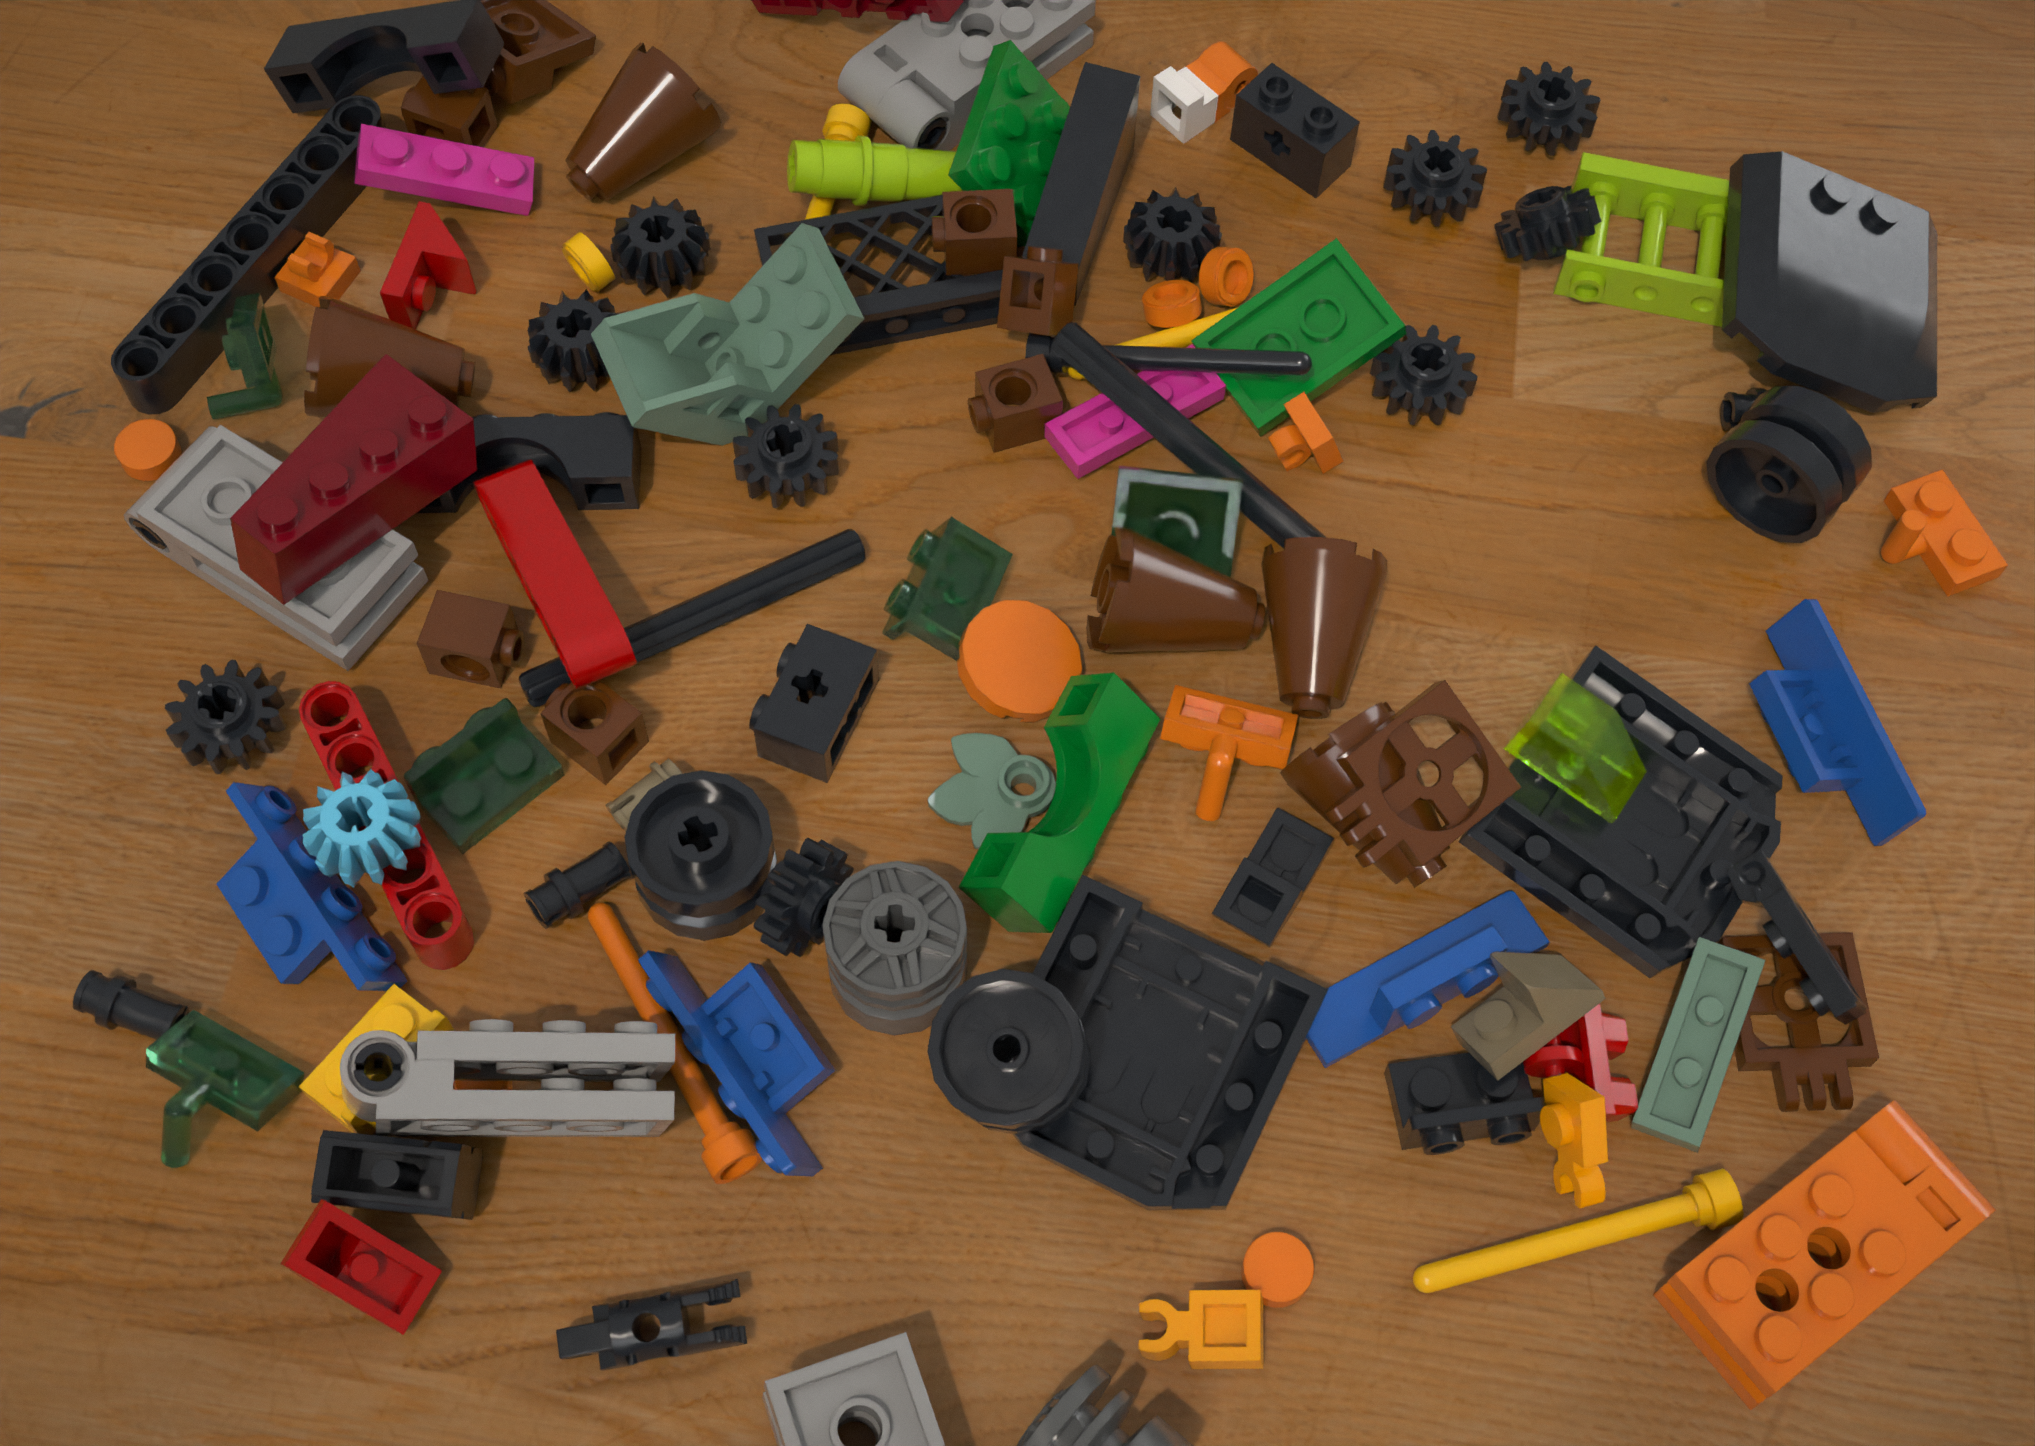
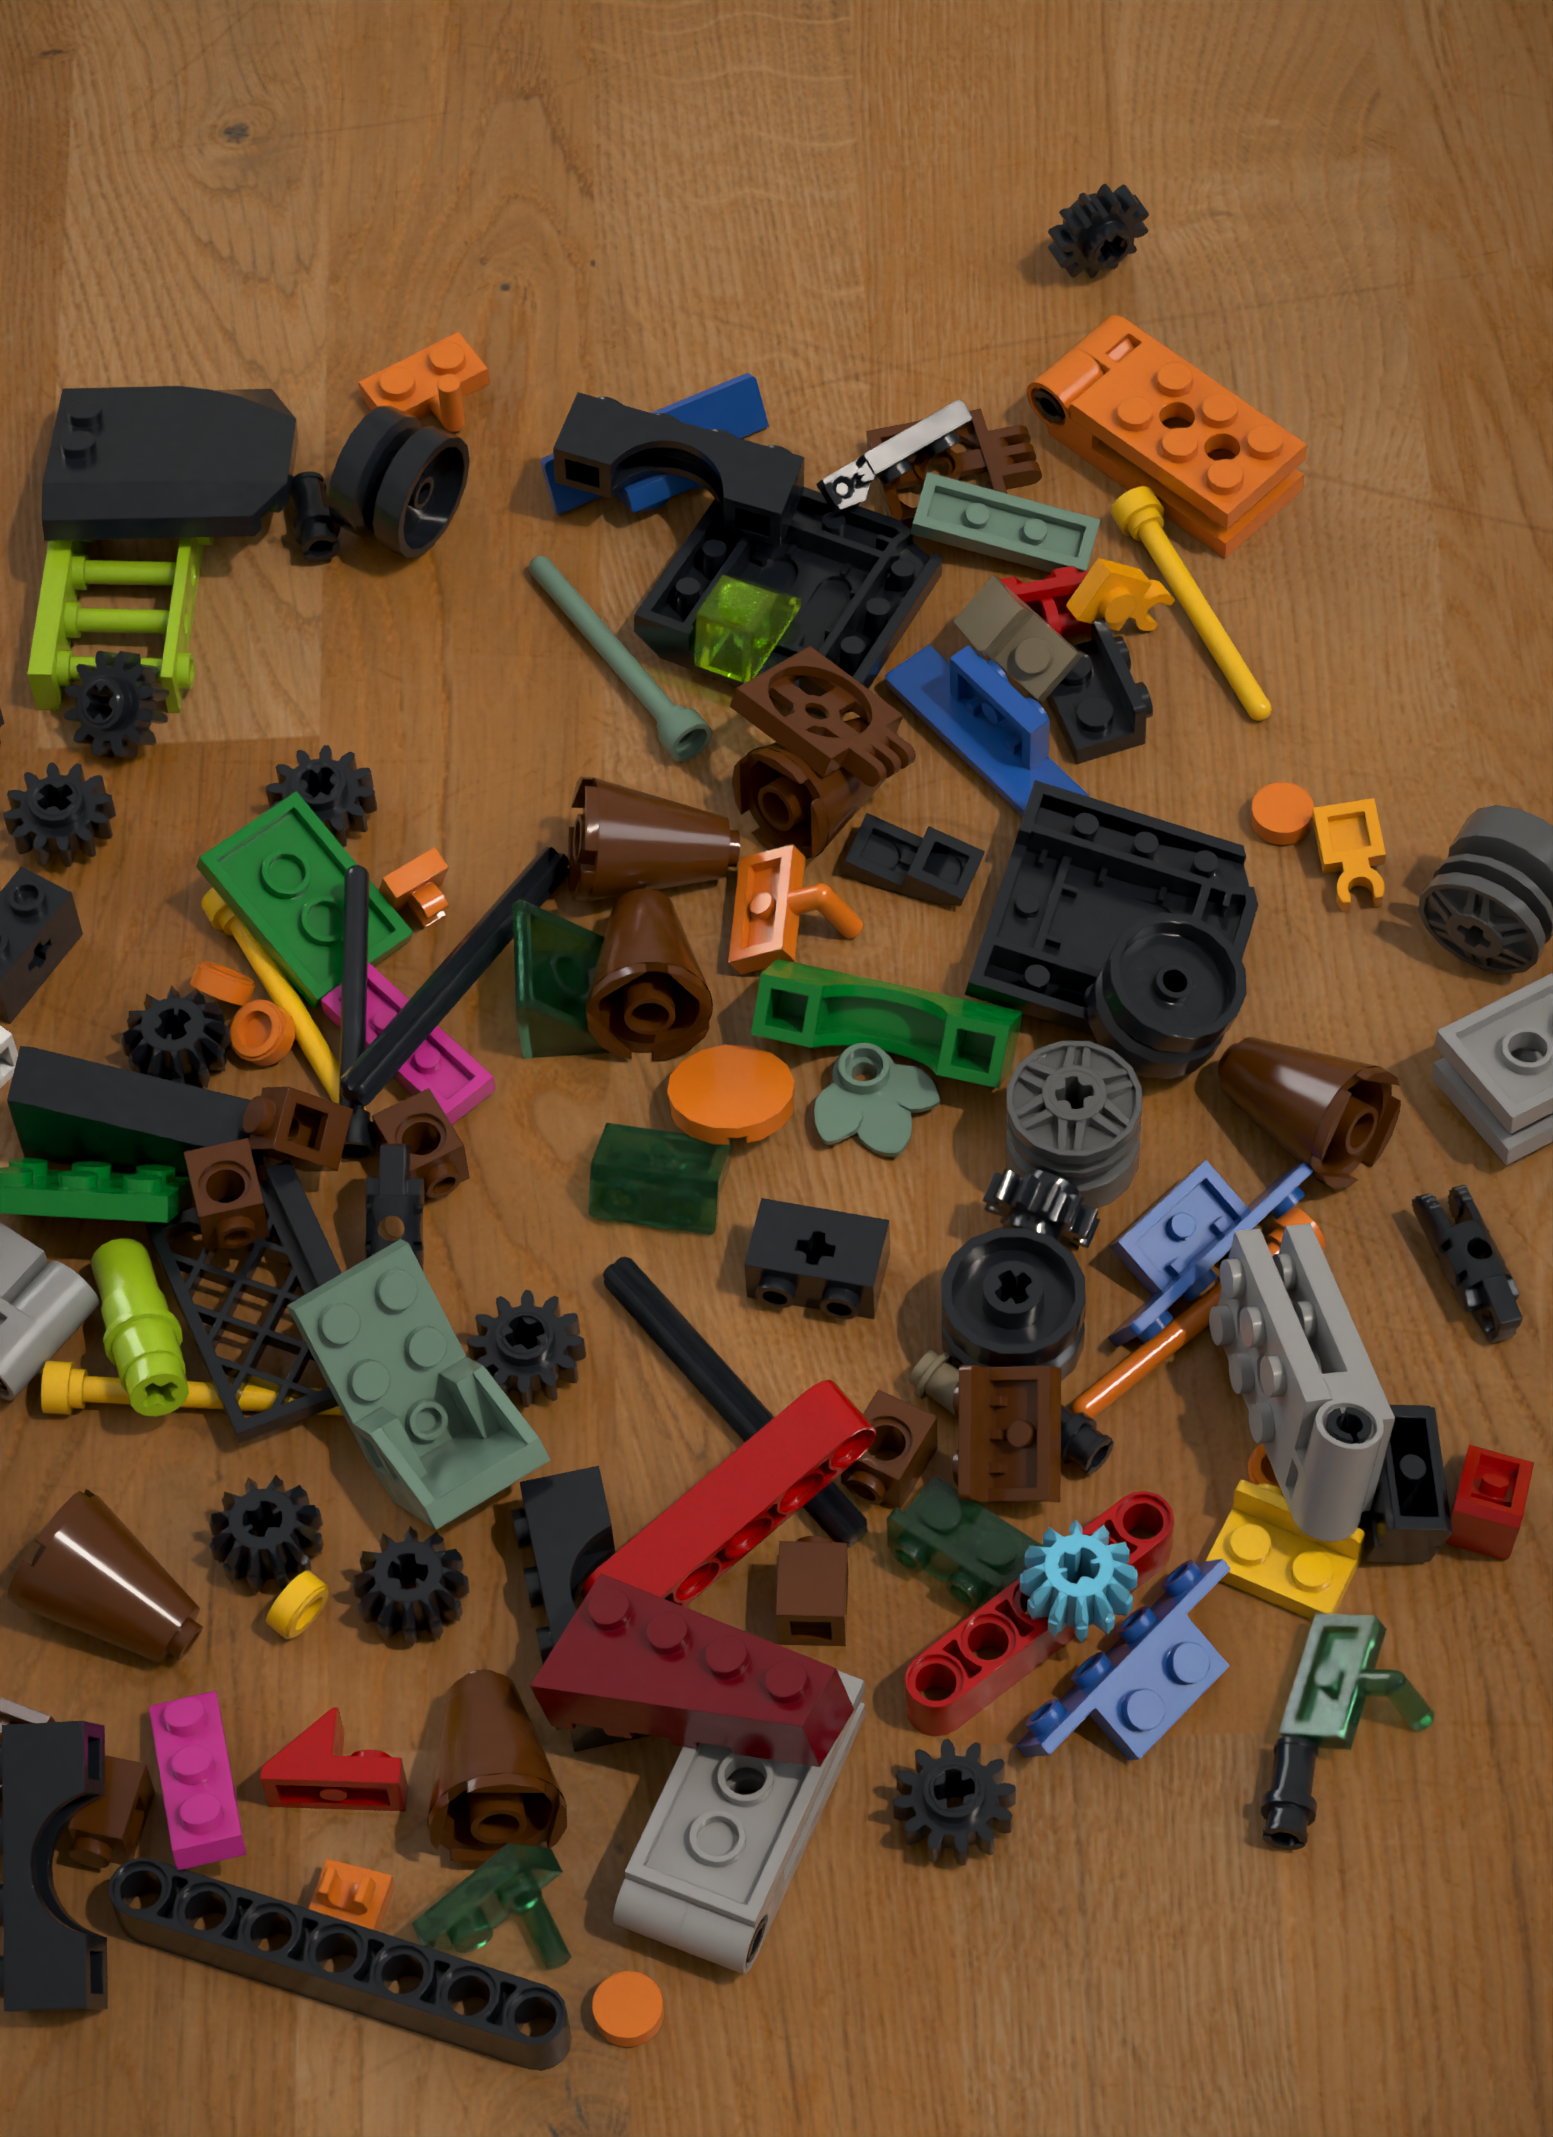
camera: 95 degrees left, 5 degrees down
(564, 816) = (1008, 1434): none -> reddish brown bracket
(870, 1193) = (1313, 1104): none -> reddish brown cone
(926, 362) = (394, 1195): none -> black hinge
(1475, 685) = (680, 729): none -> sand green piece
(1751, 769) = (614, 445): none -> black arch

